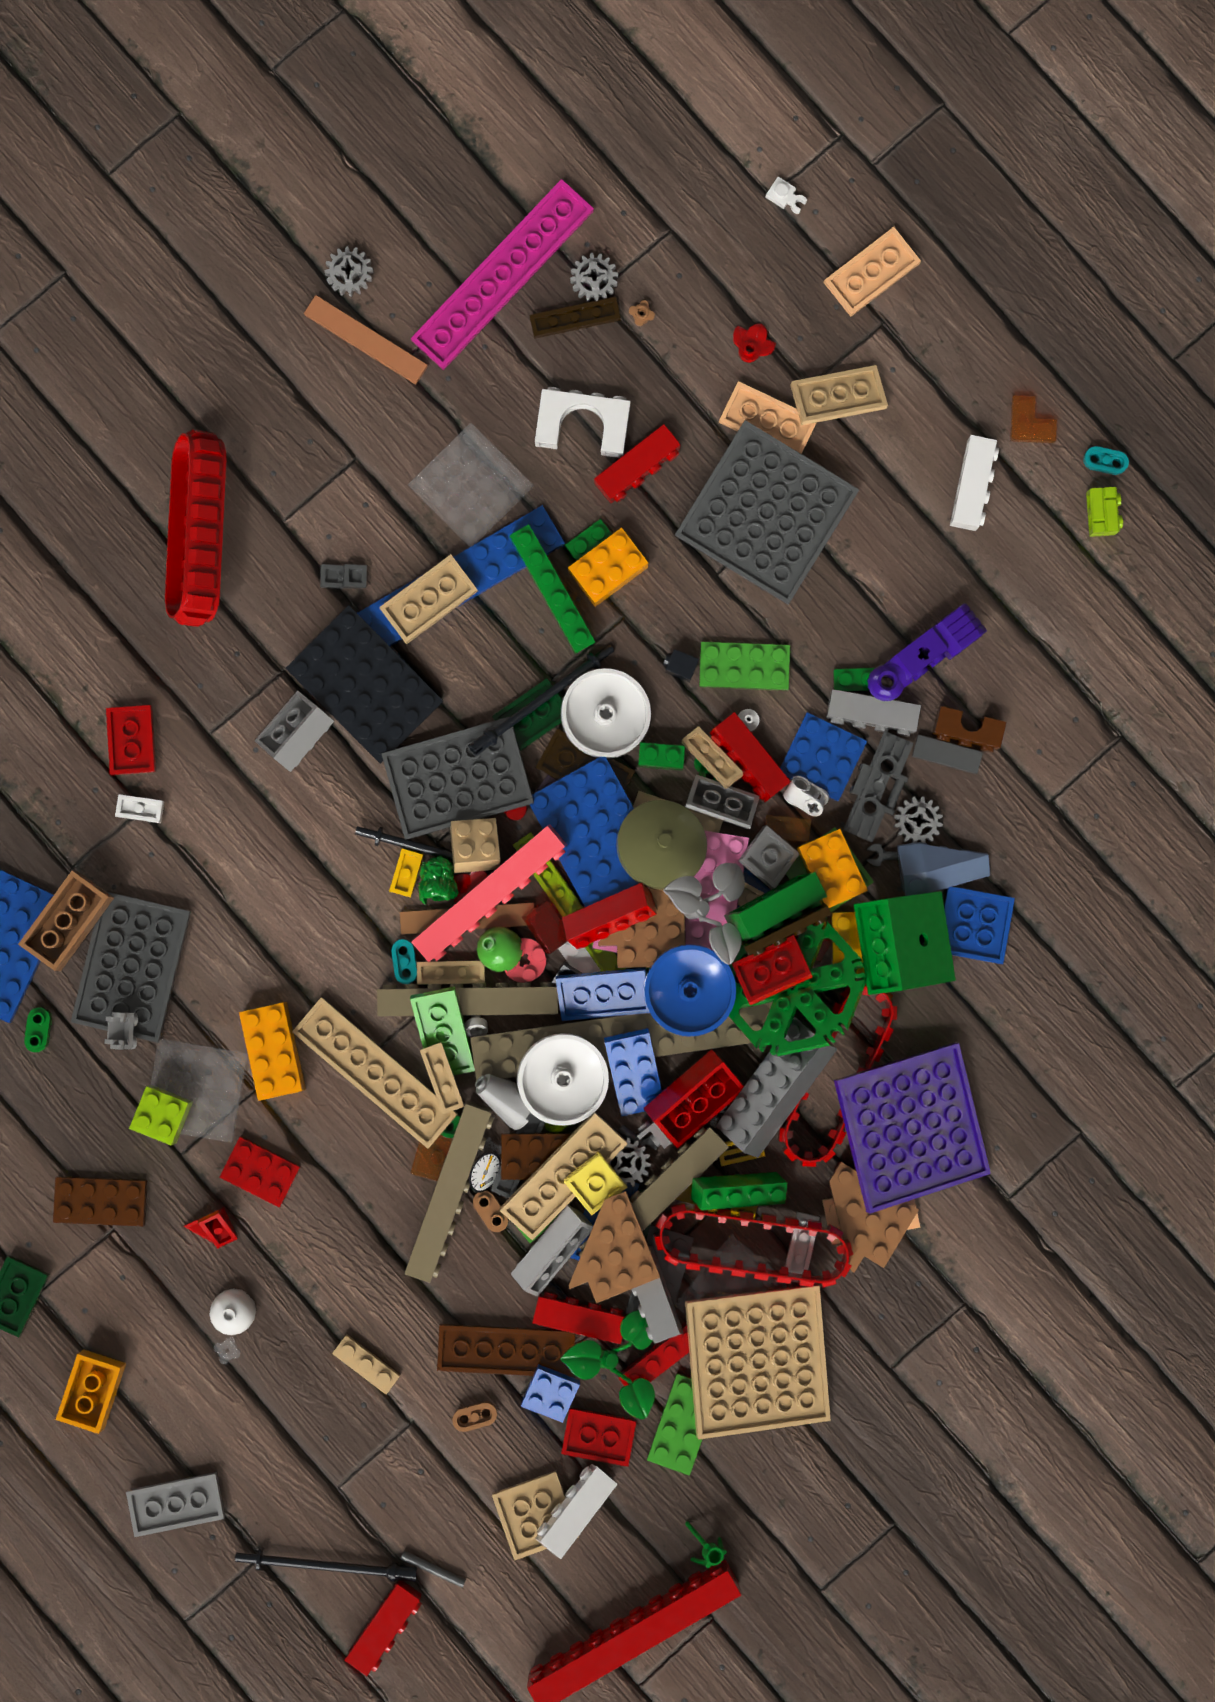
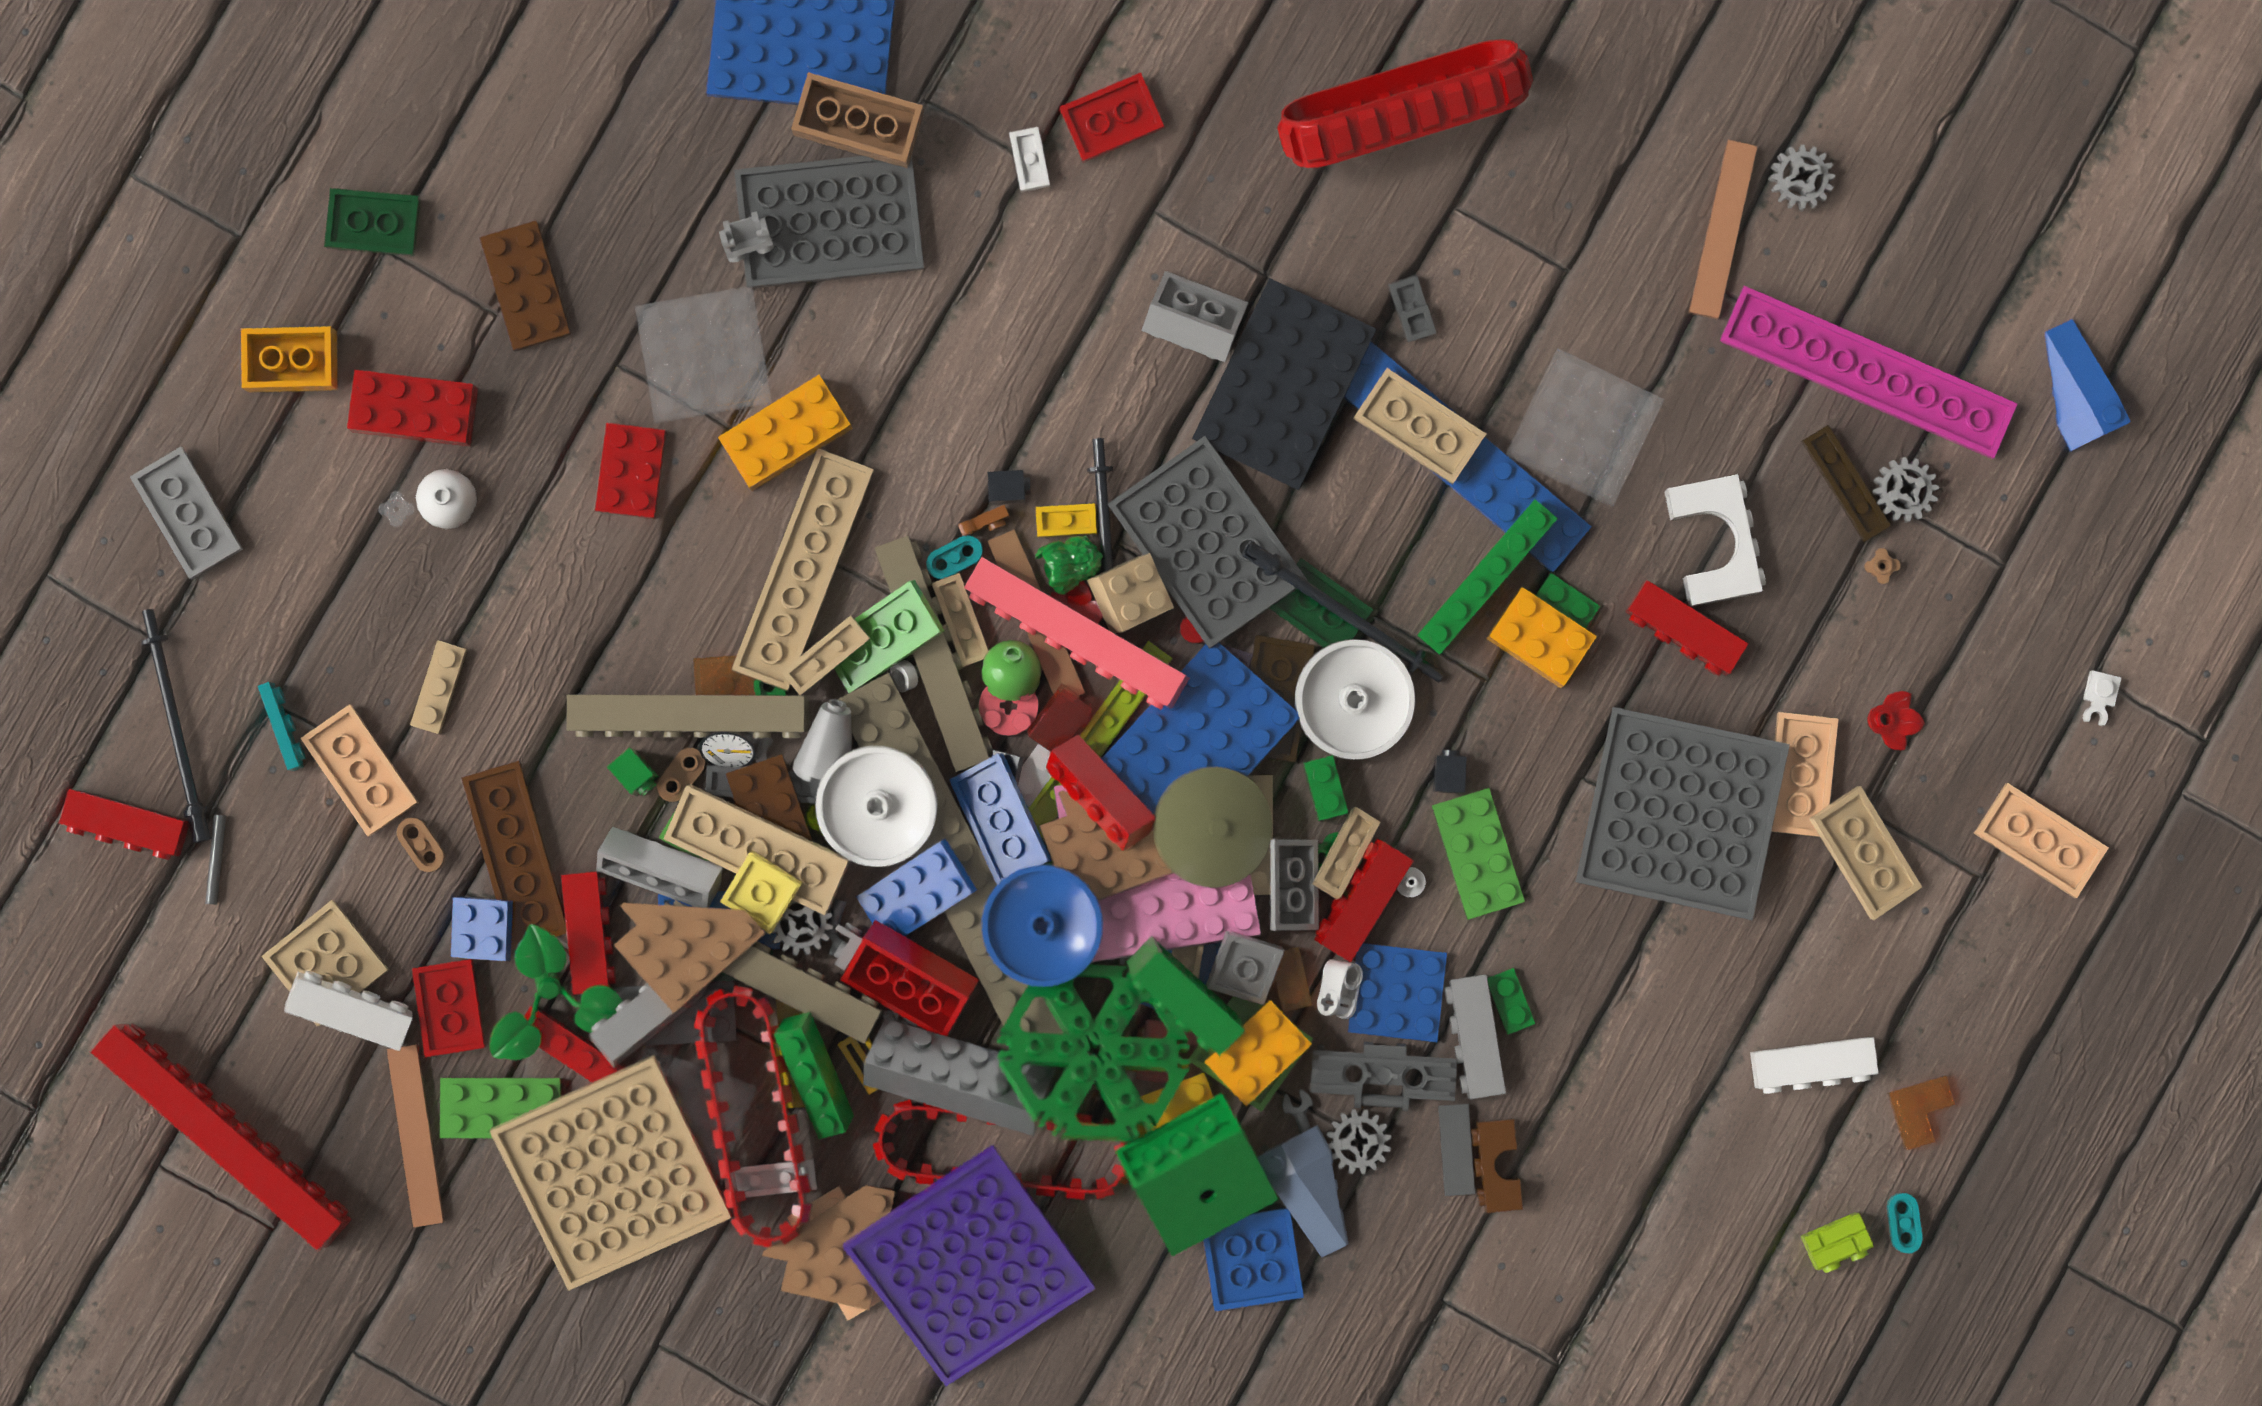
camera: 65 degrees right, 0 degrees up
(39, 1030) = (710, 133): green plate -> none
(158, 1314) = (412, 408): none -> red brick
(161, 1115) = (658, 323): lime brick -> none
(215, 1228) = (541, 439): red slope -> none
(354, 1487) = (282, 726): none -> teal plate
(367, 905) = (1008, 487): none -> black brick
(387, 924) = (992, 519): none -> dark orange plate
(405, 1442) = (359, 770): none -> light nougat plate
(477, 1245) = (634, 773): none -> green brick
(569, 131) = (2082, 393): none -> blue wedge
(682, 1492) = (415, 1136): none -> nougat tile
(686, 897) = (1154, 878): light grey plant -> none
(711, 1552) = (356, 1195): green plant -> none
(772, 970) = (1103, 1019): red plate -> none
(797, 926) = (1169, 1030): dark brown plate -> none
(941, 641) = (1603, 1096): dark purple brick -> none

